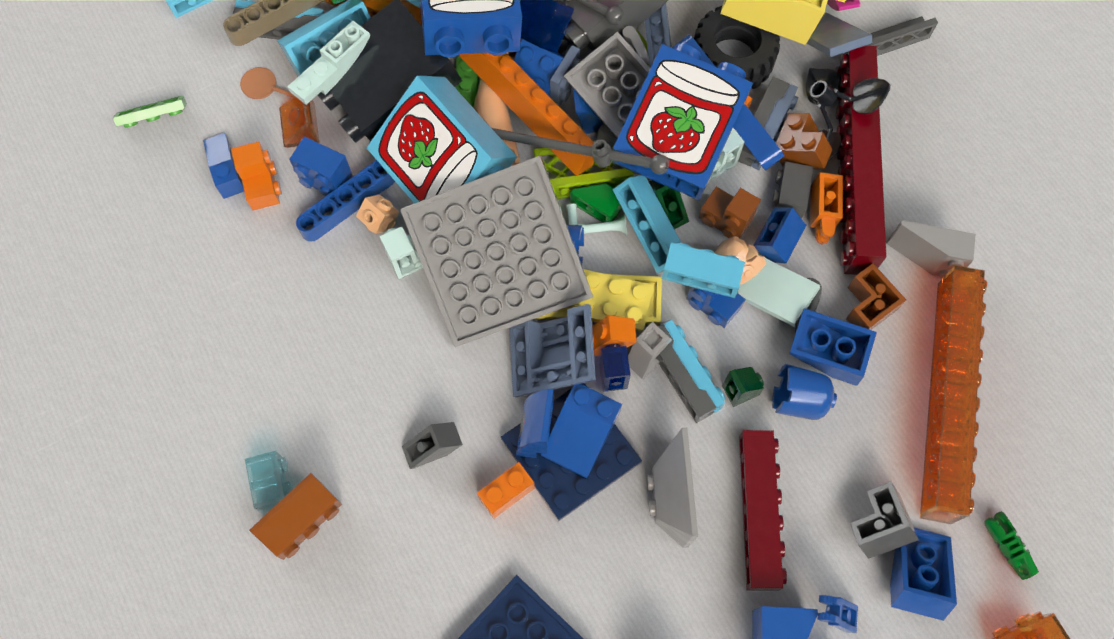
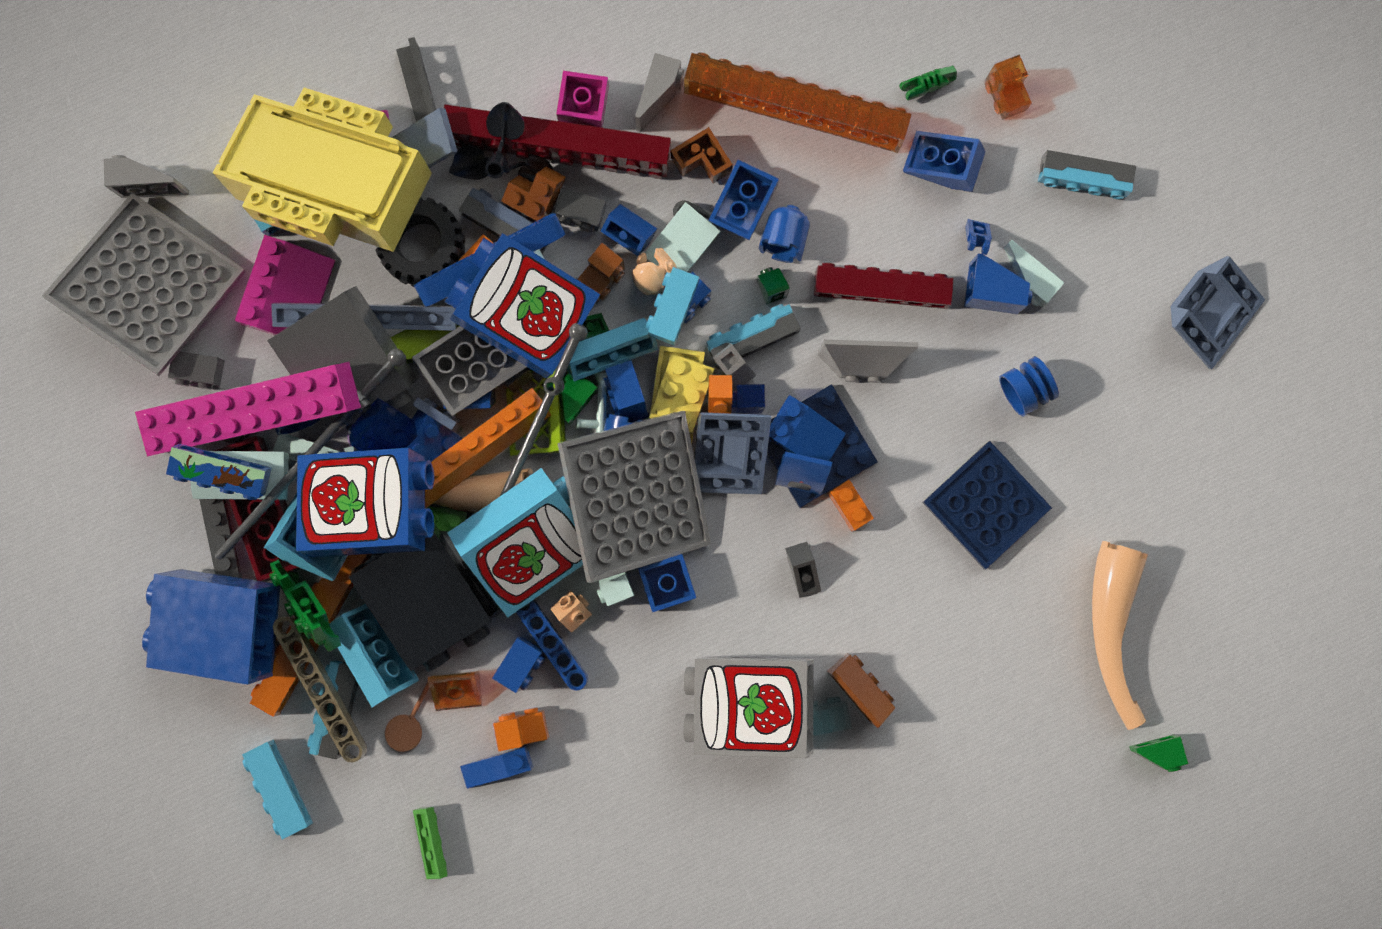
camera: 90 degrees left, 15 degrees up
(275, 396) = (751, 707): none -> brick
(334, 62) = (417, 648): light aqua slope -> none
(410, 302) = (667, 583): none -> blue brick
(607, 242) = (625, 392): none -> blue brick
(632, 38) = (422, 339): light grey plate -> none
(826, 205) = (603, 182): orange hinge -> none
(888, 526) = (909, 180): dark grey brick -> none
(909, 179) = (582, 99): none -> dark pink brick

